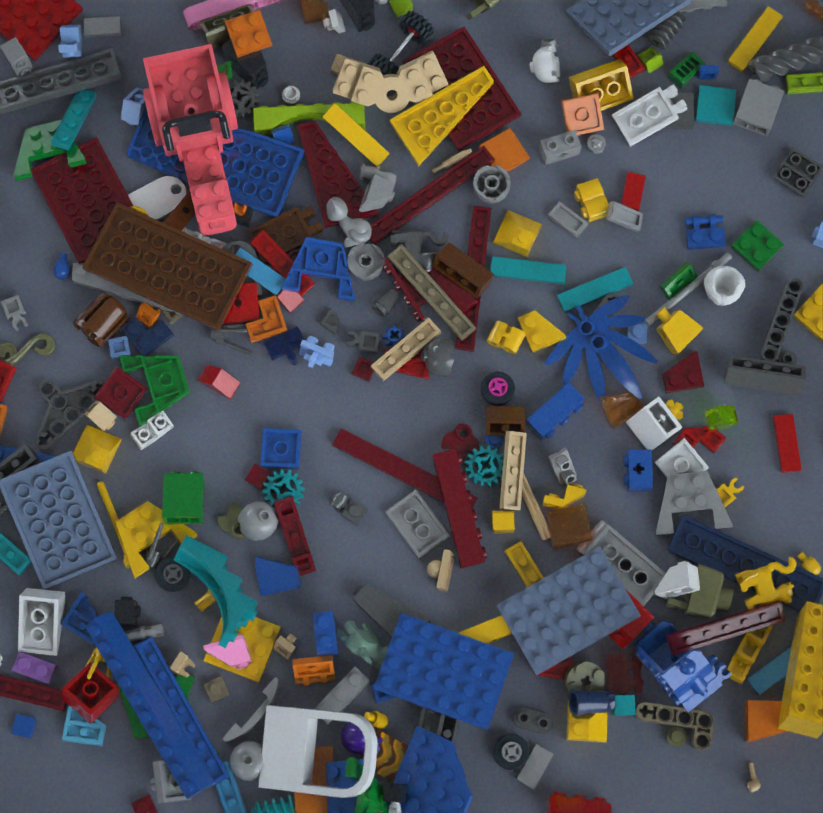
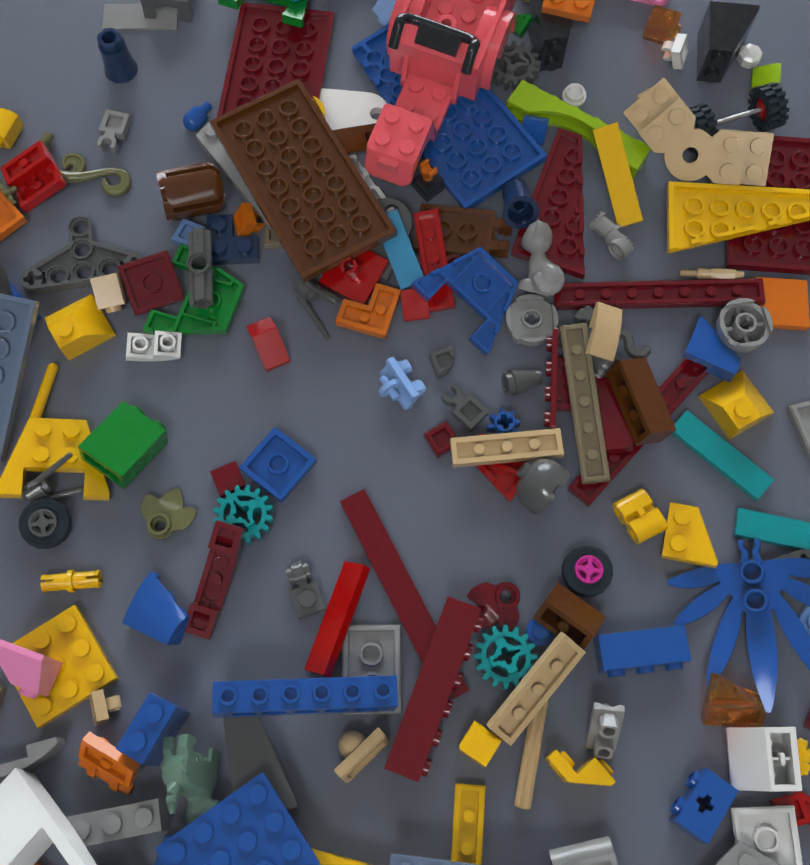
camera: 35 degrees right, 5 degrees down
(154, 371) = (200, 280): none -> dark grey piece
(225, 587) = (87, 547): teal arch -> none
(258, 520) = (185, 530): light grey cylinder -> none
(285, 344) = (370, 352): clear blue plate -> none
(310, 195) = (519, 206): none -> dark blue plant
(377, 194) = (597, 253): light grey slope -> none
(379, 509) = (337, 619): none -> red tile
(394, 560) = (304, 696): none -> blue brick
(416, 242) = (605, 331): none -> tan slope
(483, 212) = (711, 352): none -> blue slope
(569, 526) = (561, 814): clear orange tile -> none

